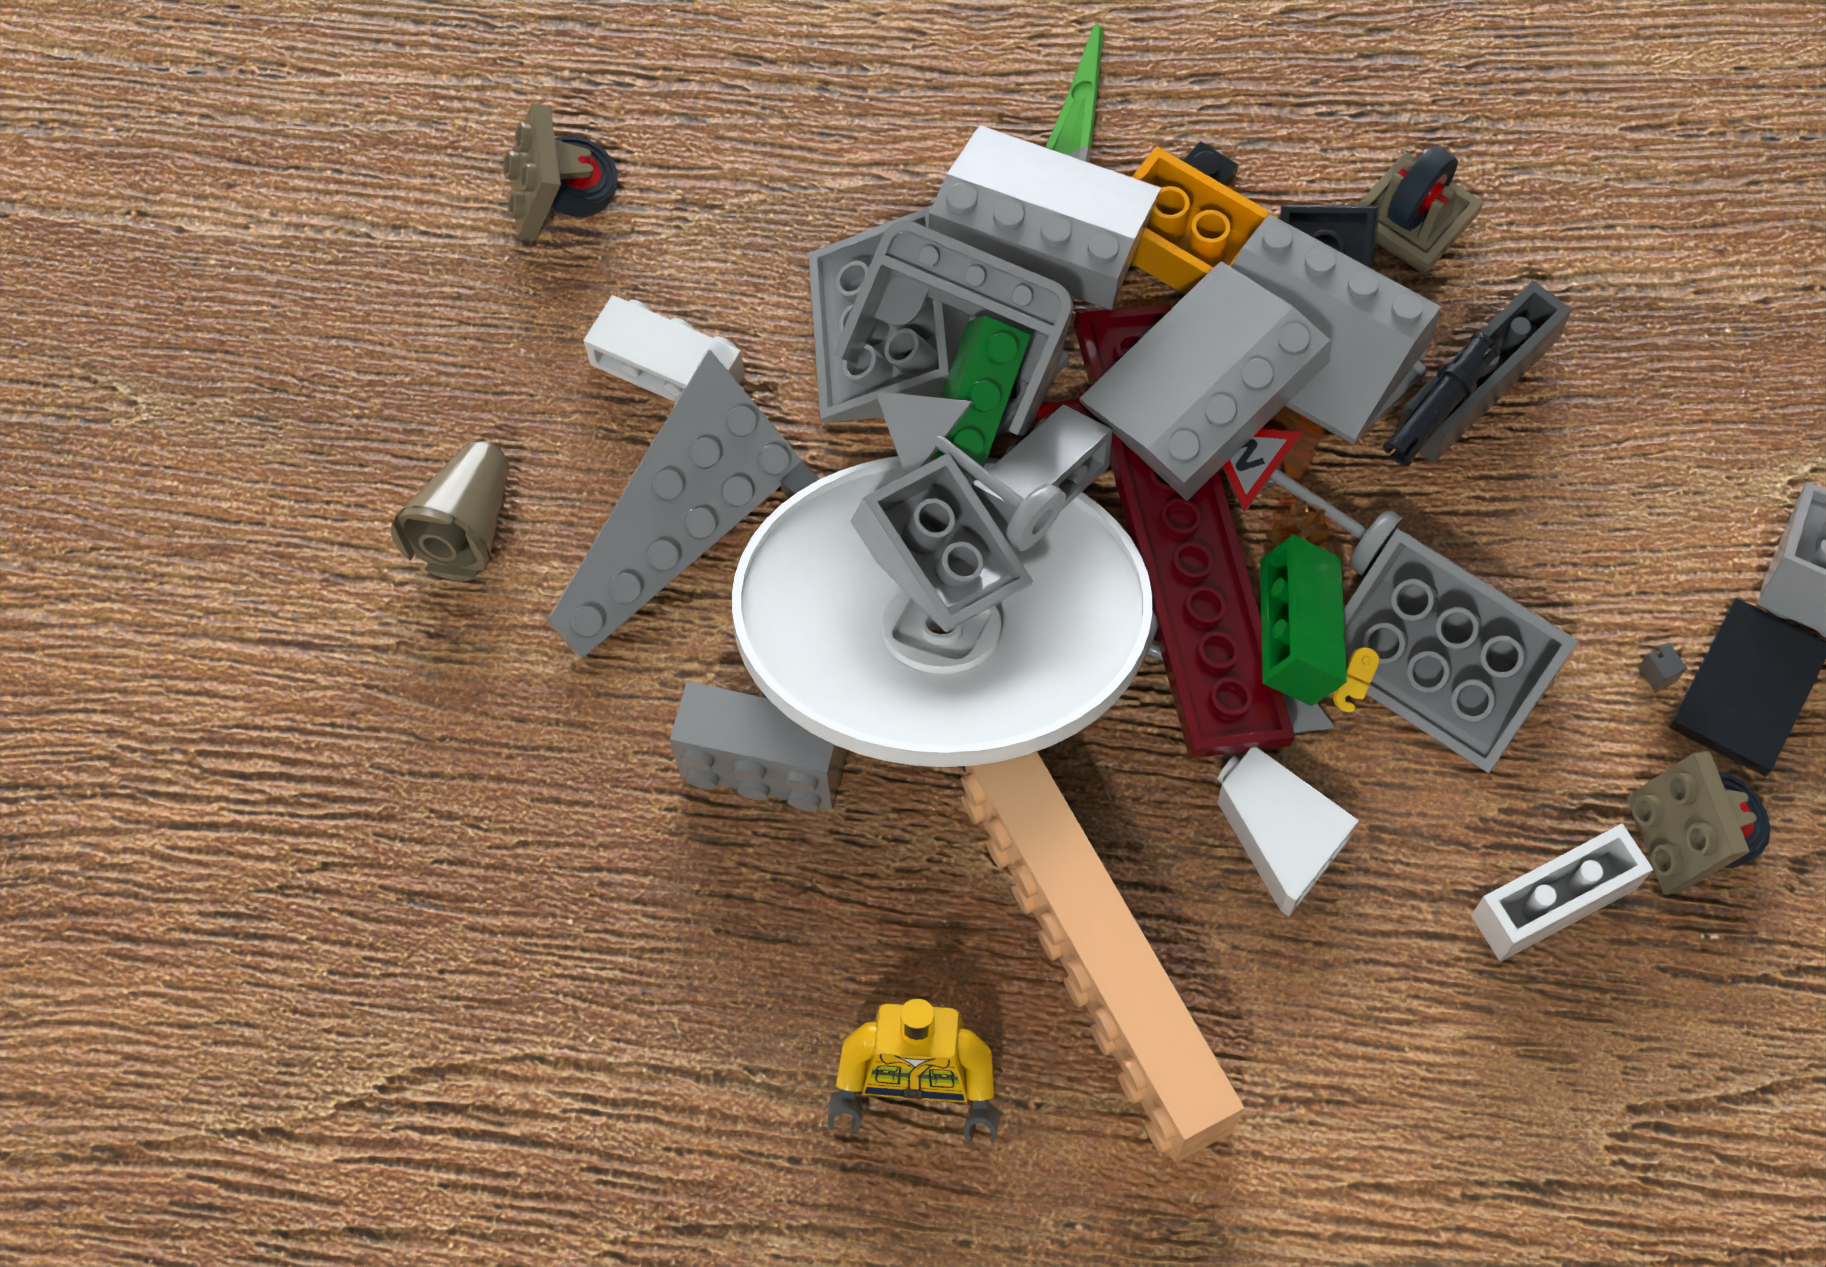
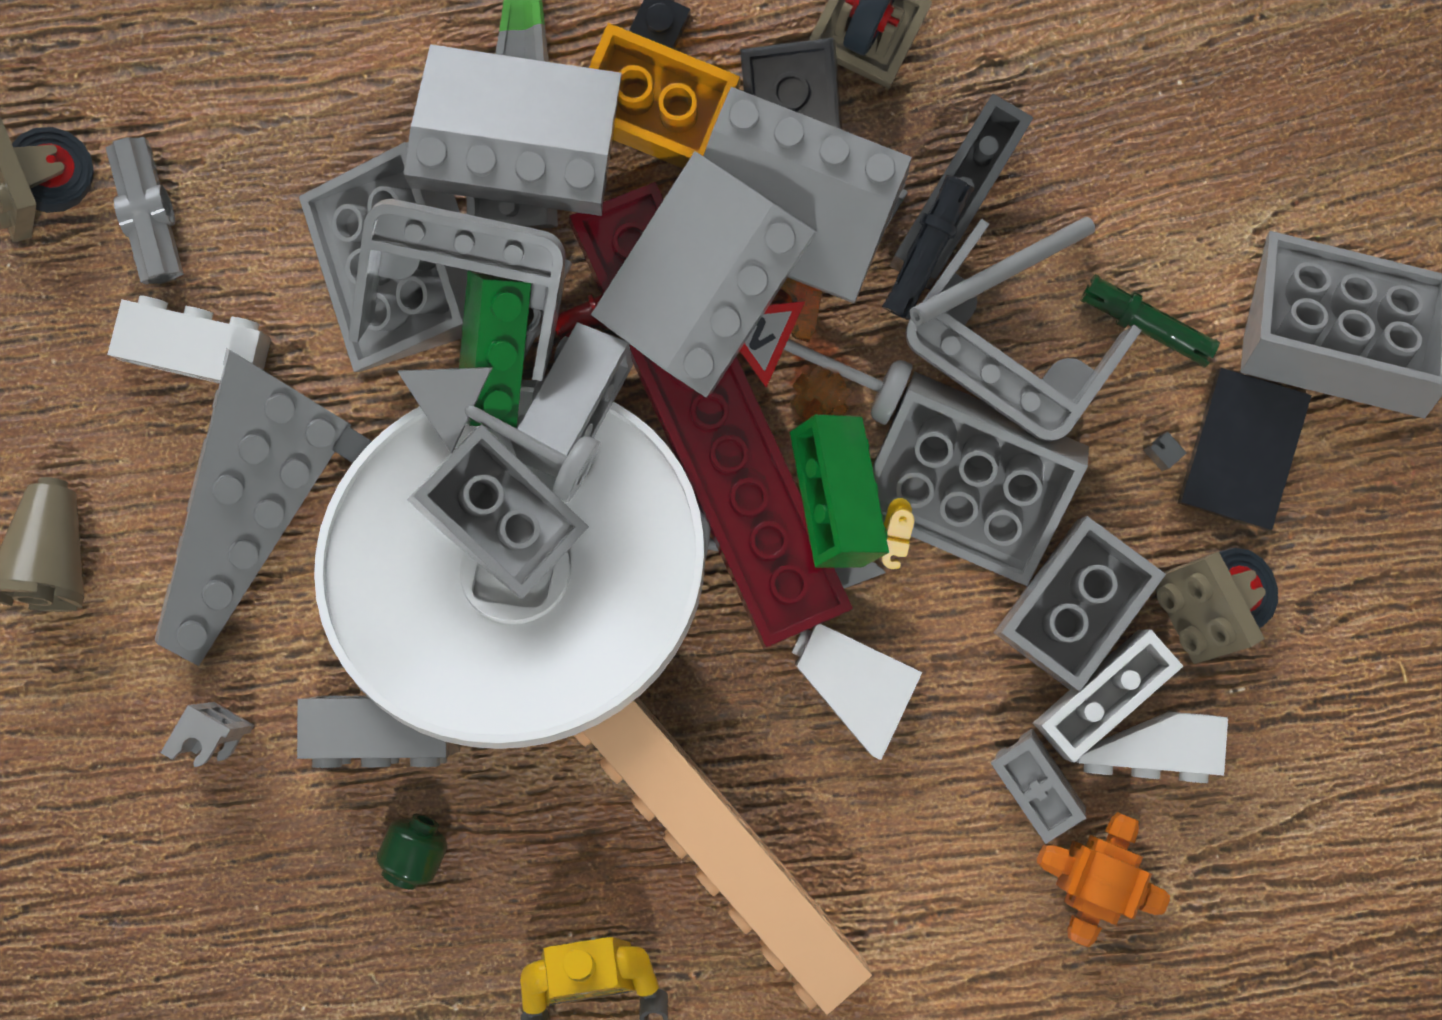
camera: 15 degrees left, 20 degrees up
(575, 706) = (203, 729): none -> light grey hinge
(655, 232) = (144, 210): none -> light grey piece
(756, 890) = (411, 851): none -> dark green head
(1446, 488) = (1039, 406): none -> light grey windscreen
(1469, 976) = (1039, 786): none -> light grey hinge
(1514, 444) = (1001, 271): none -> light grey piece
(1526, 1093) = (1103, 879): none -> orange piece
(1544, 790) = (1079, 603): none -> light grey brick
(1622, 966) = (1167, 742): none -> white slope
(1664, 537) = (1131, 310): none -> dark green pin

